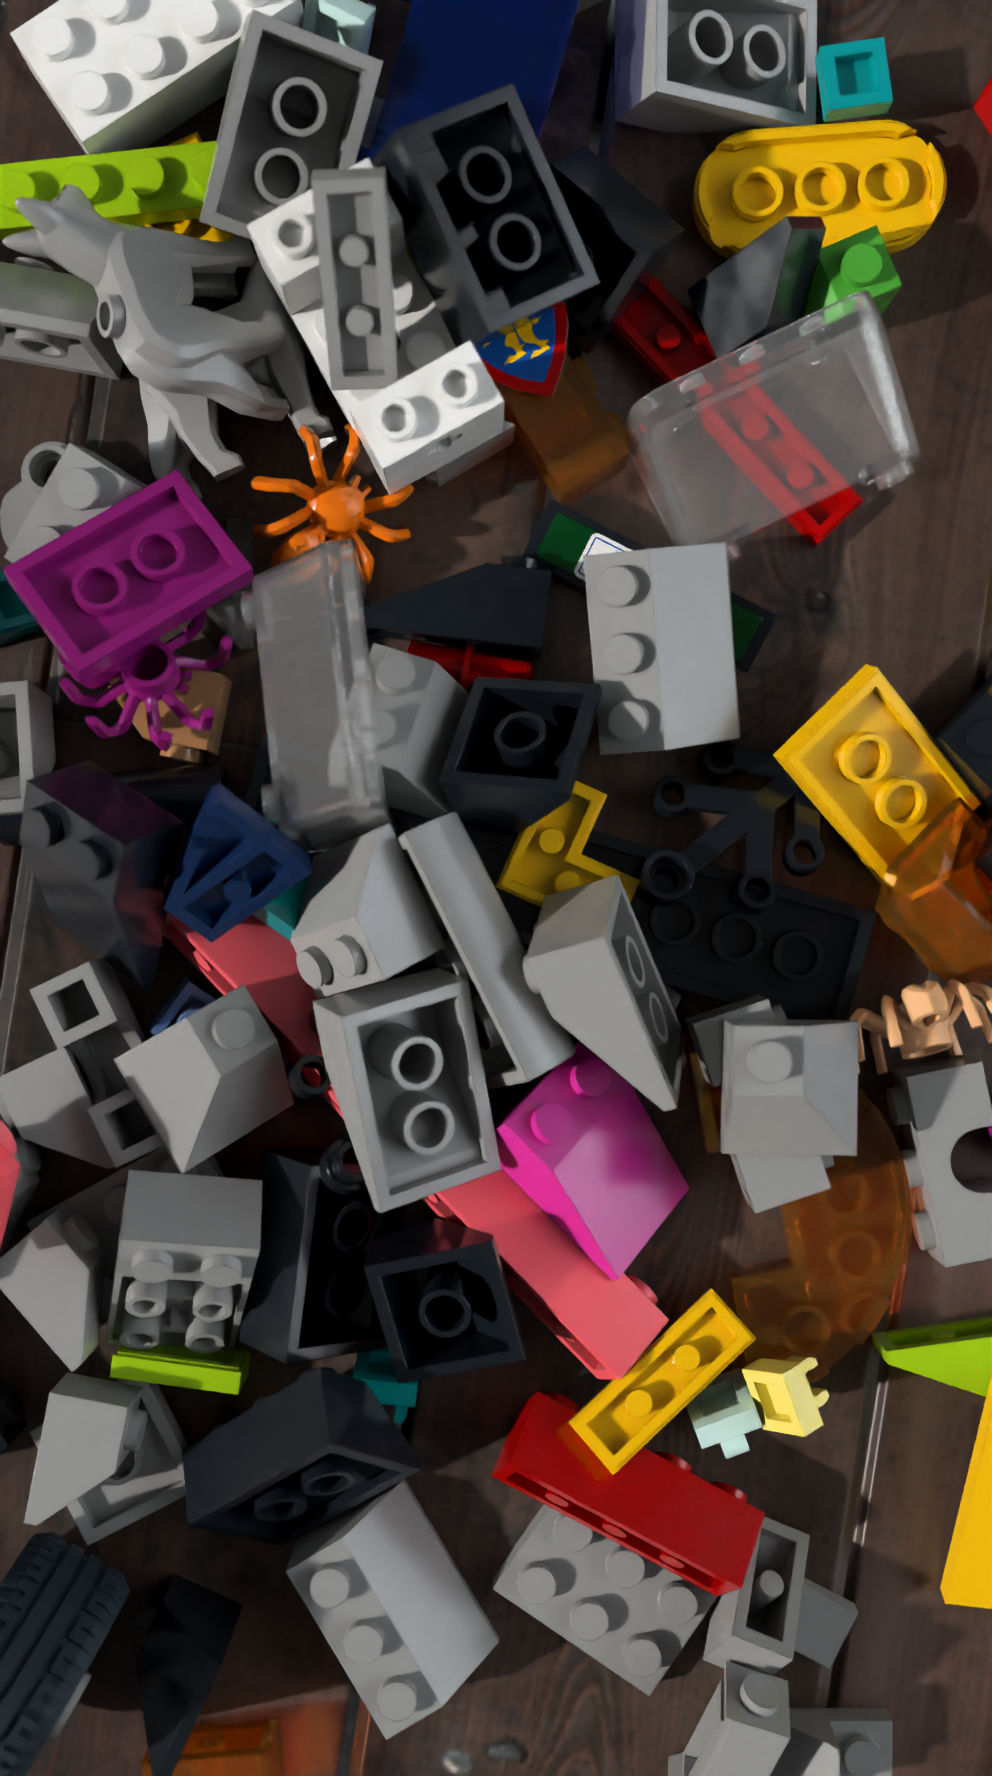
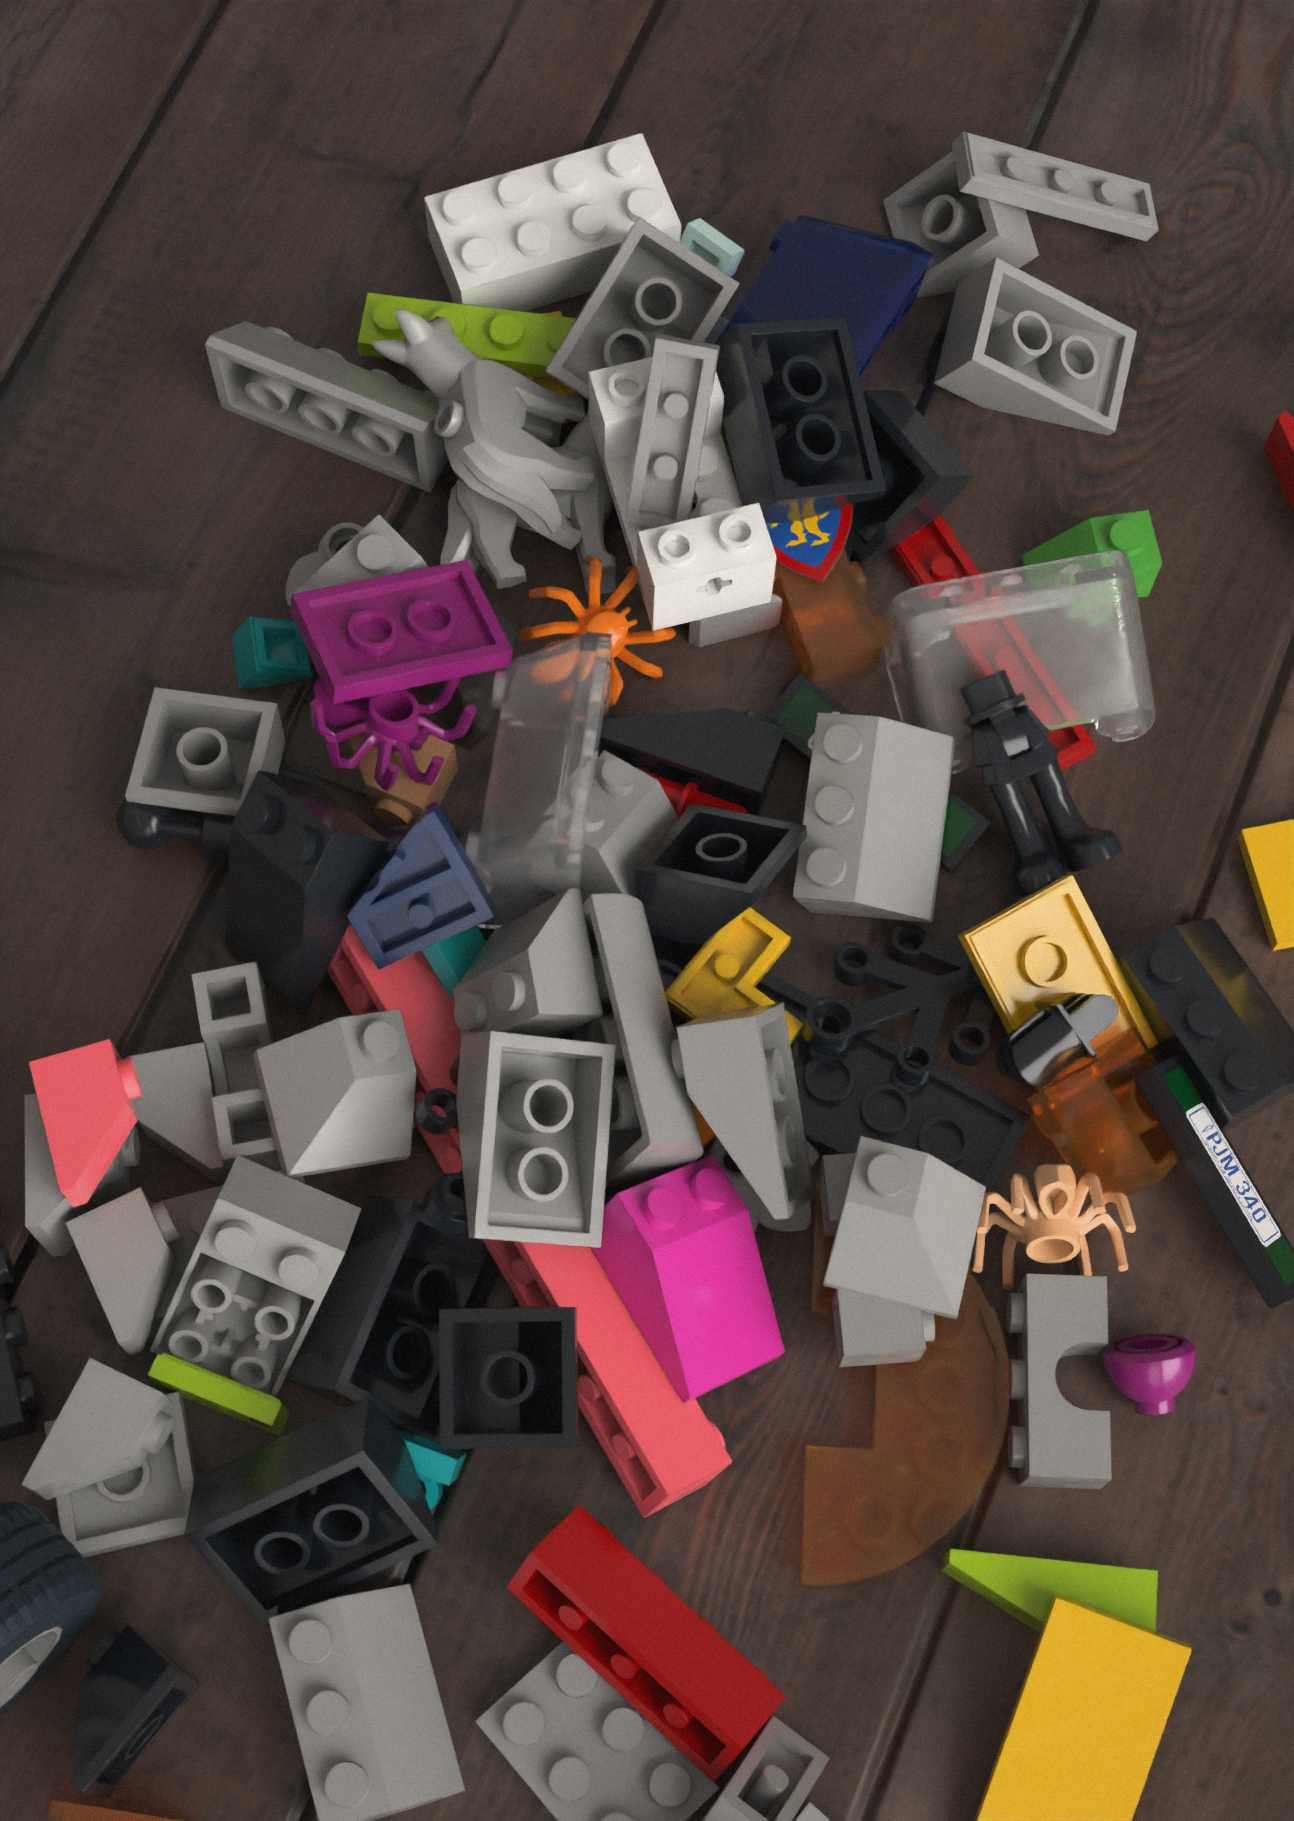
camera: 10 degrees right, 20 degrees down
(662, 1381) = (709, 1521): yellow tile -> none
(724, 1414) = (764, 1586): light aqua tile -> none
(760, 285) = (1035, 528): black slope -> none
(784, 1395) = (833, 1564): light yellow tile -> none
(791, 540) = (1014, 746): none -> black piece
(834, 171) = (1072, 471): yellow tile -> none
(853, 79) = (1154, 396): teal tile -> none
(892, 838) = (1054, 1038): none -> black arm

